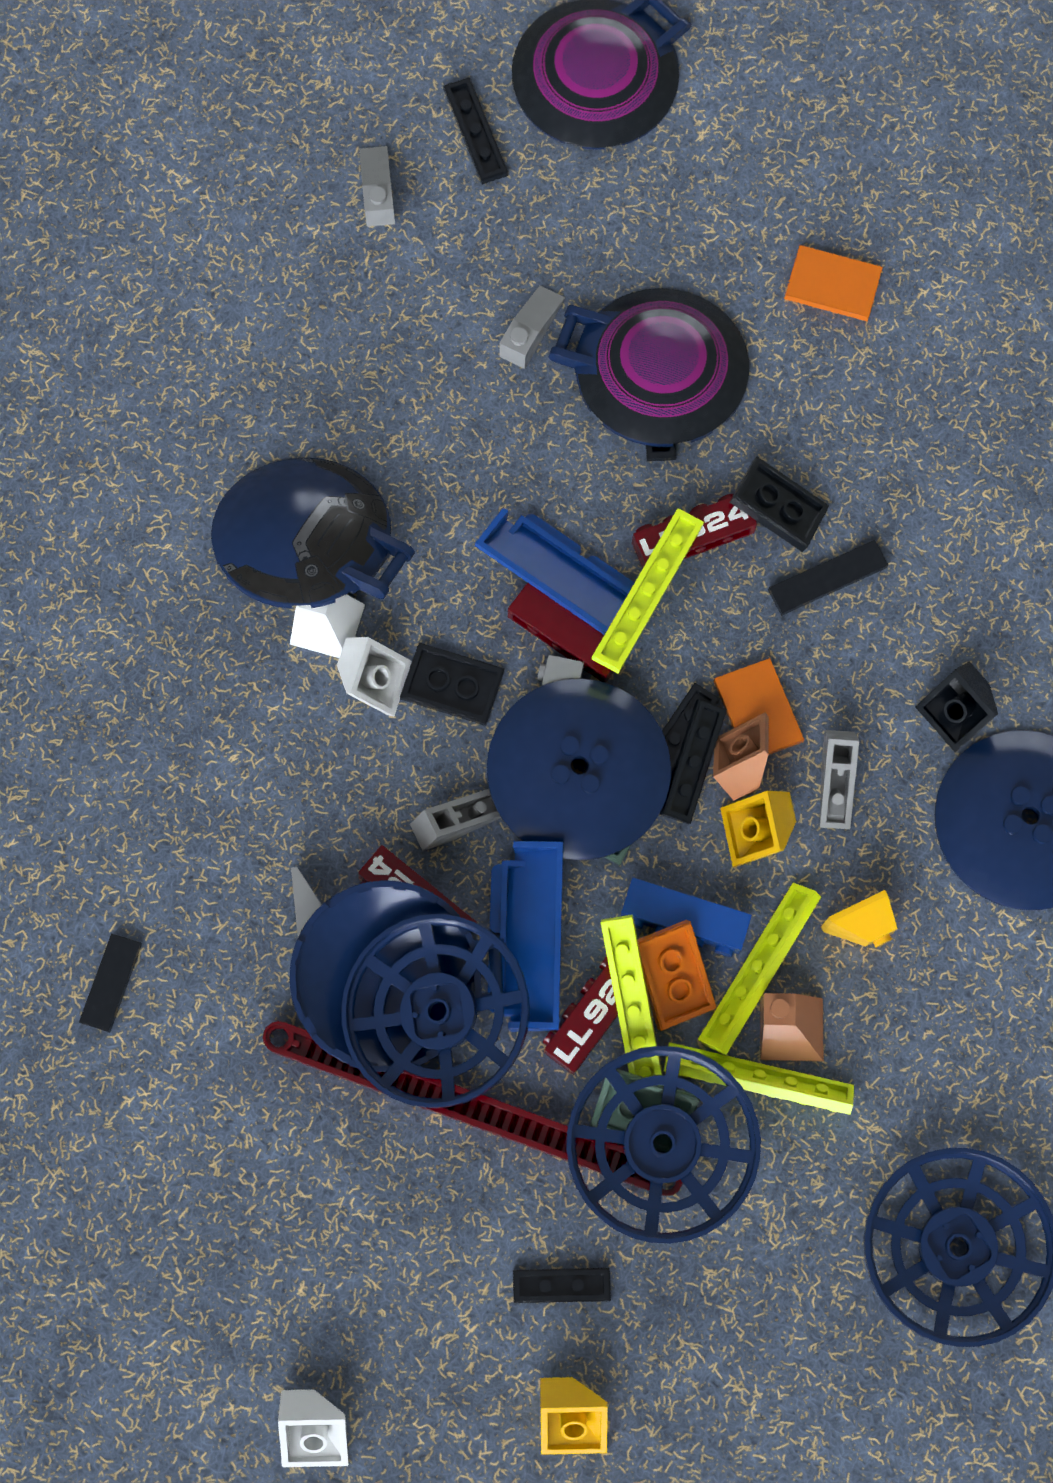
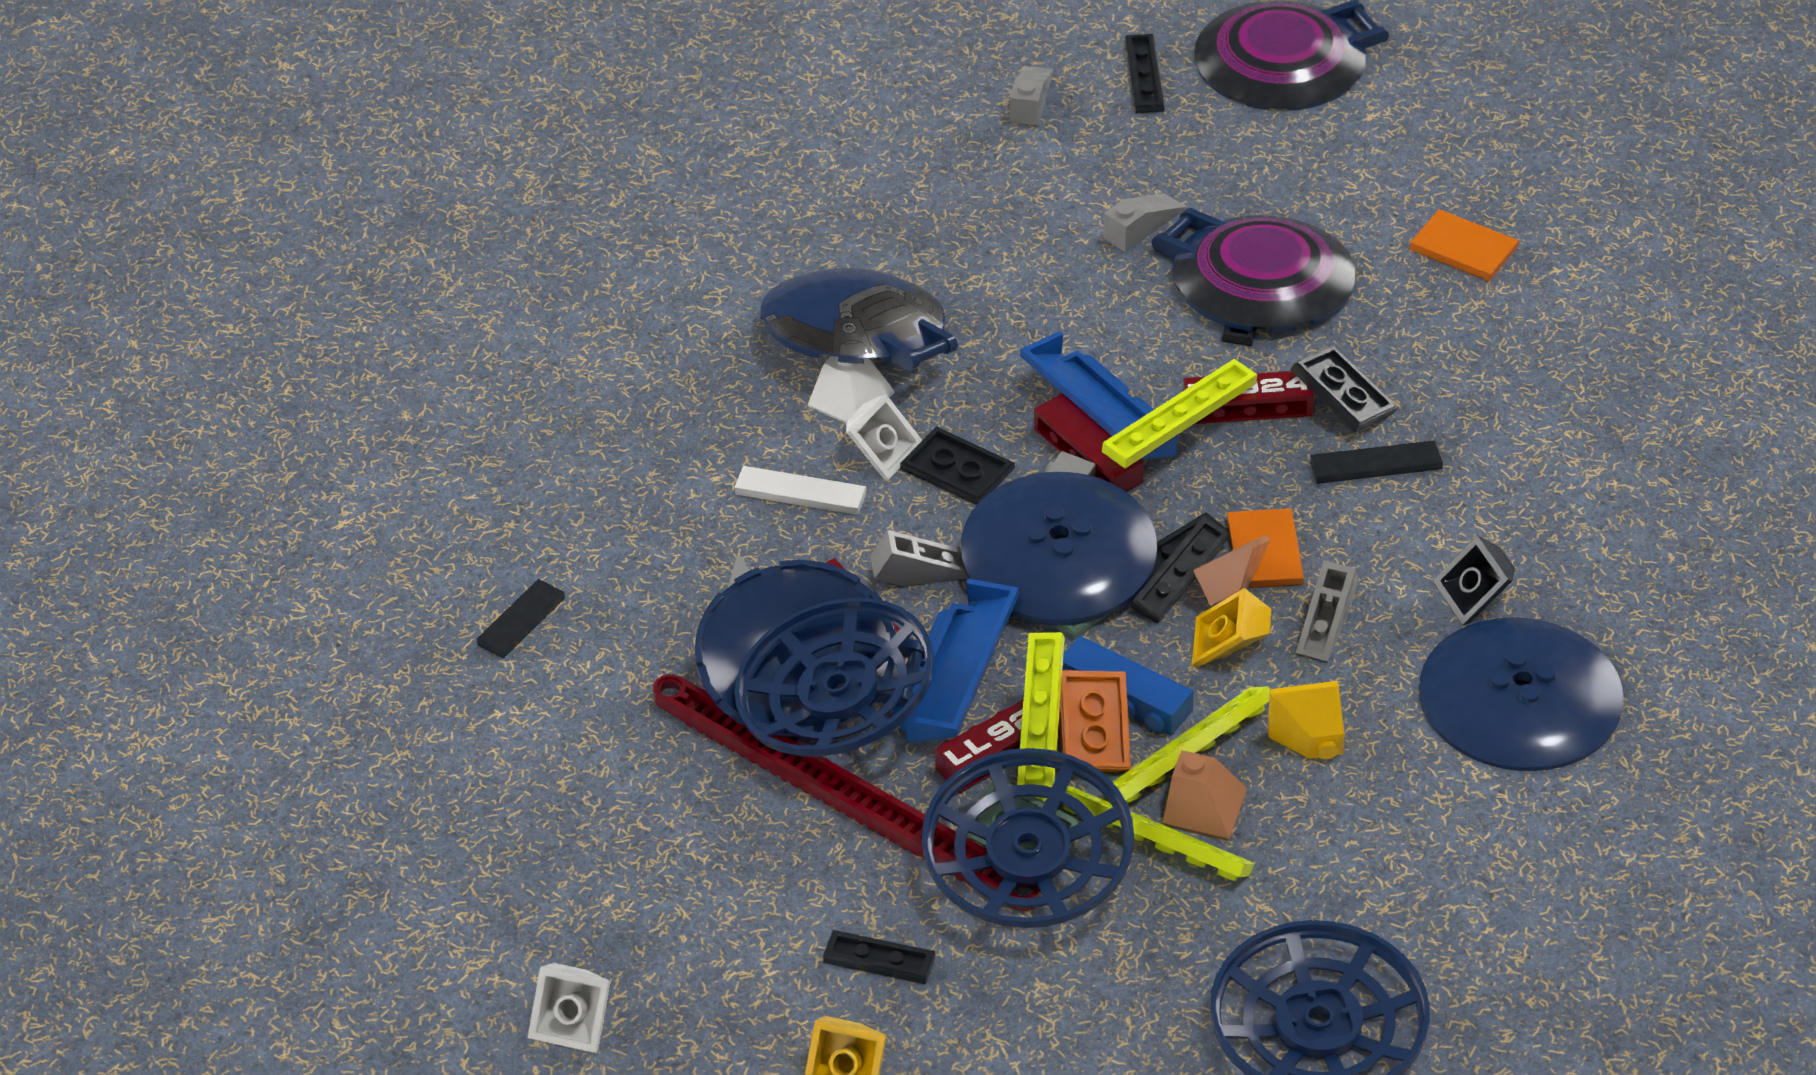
camera: 20 degrees right, 30 degrees down
(317, 754) = (800, 490): none -> white tile

